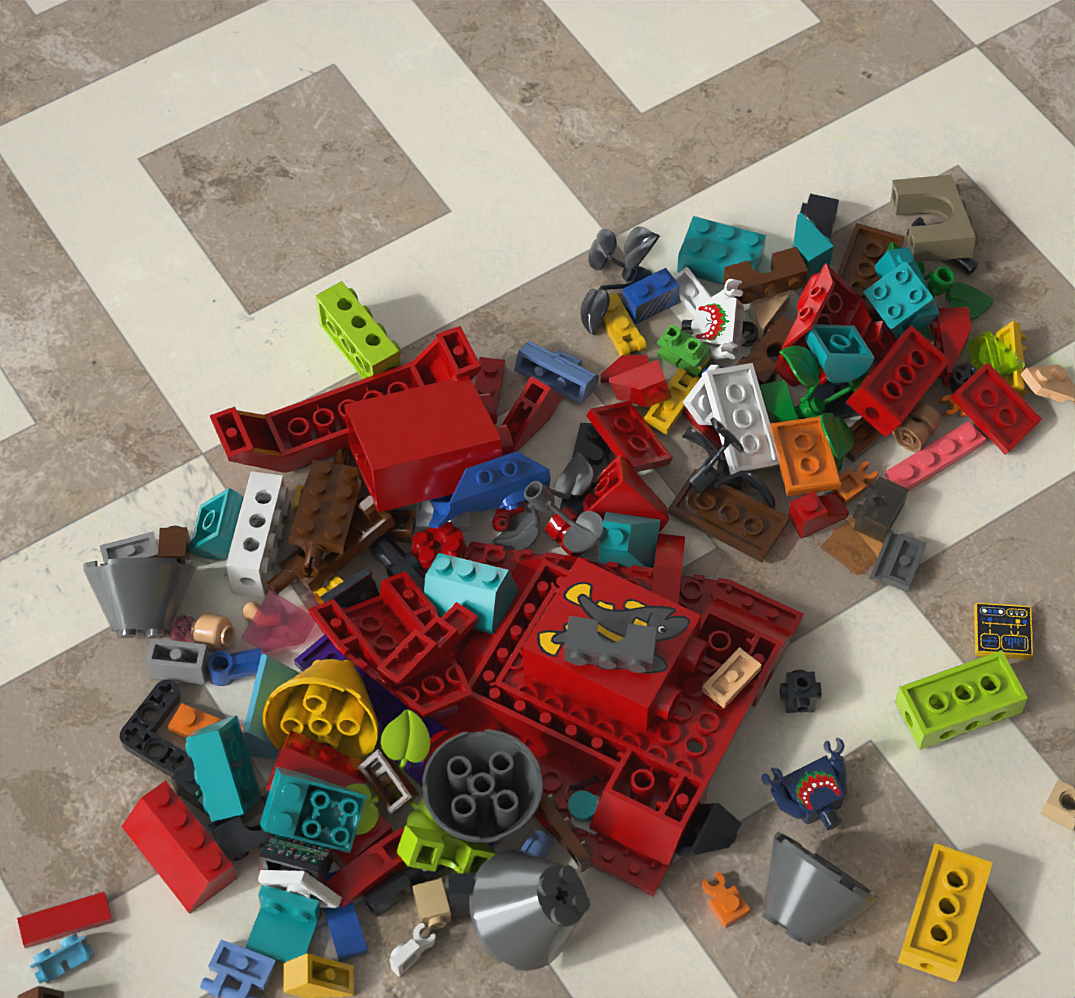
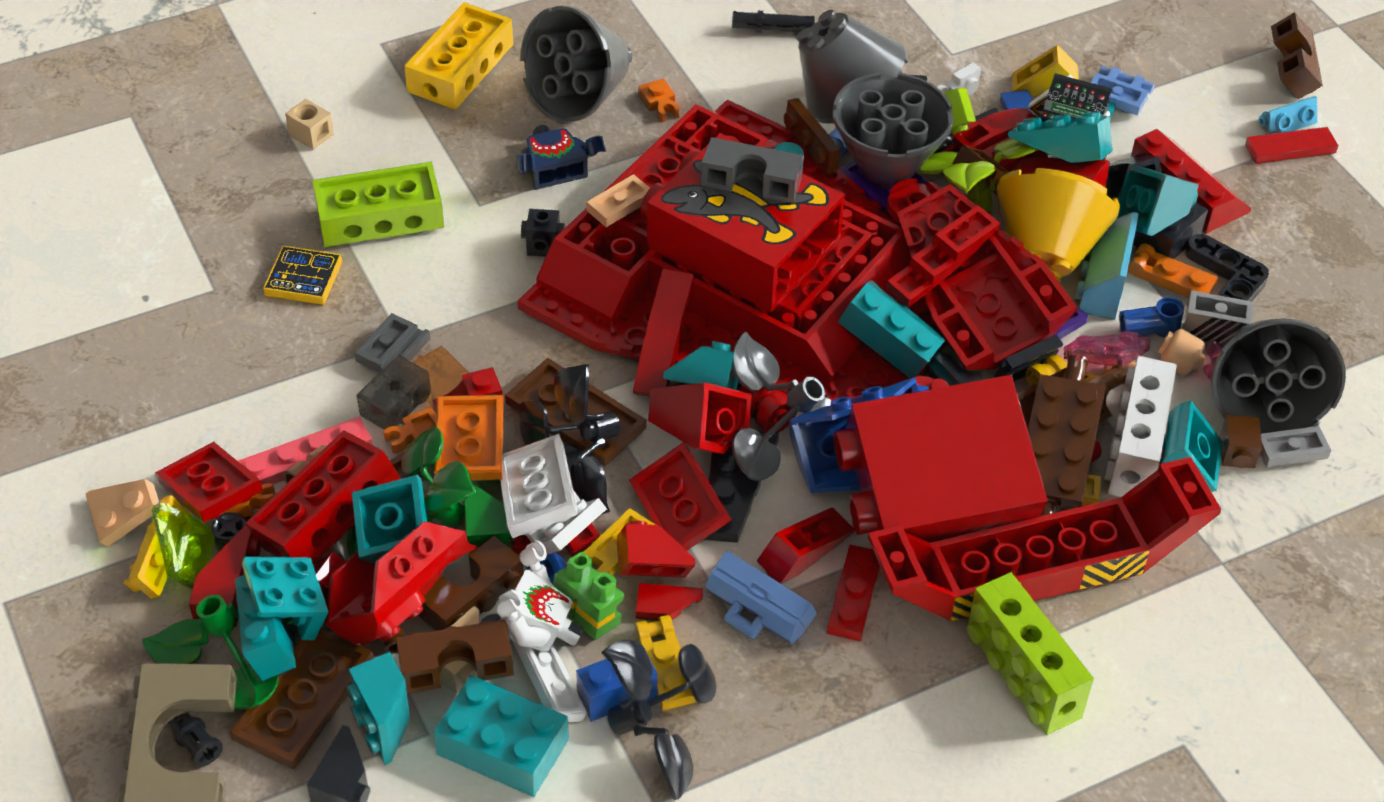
camera: 175 degrees left, 10 degrees down
(709, 831) = (661, 122): black slope -> none

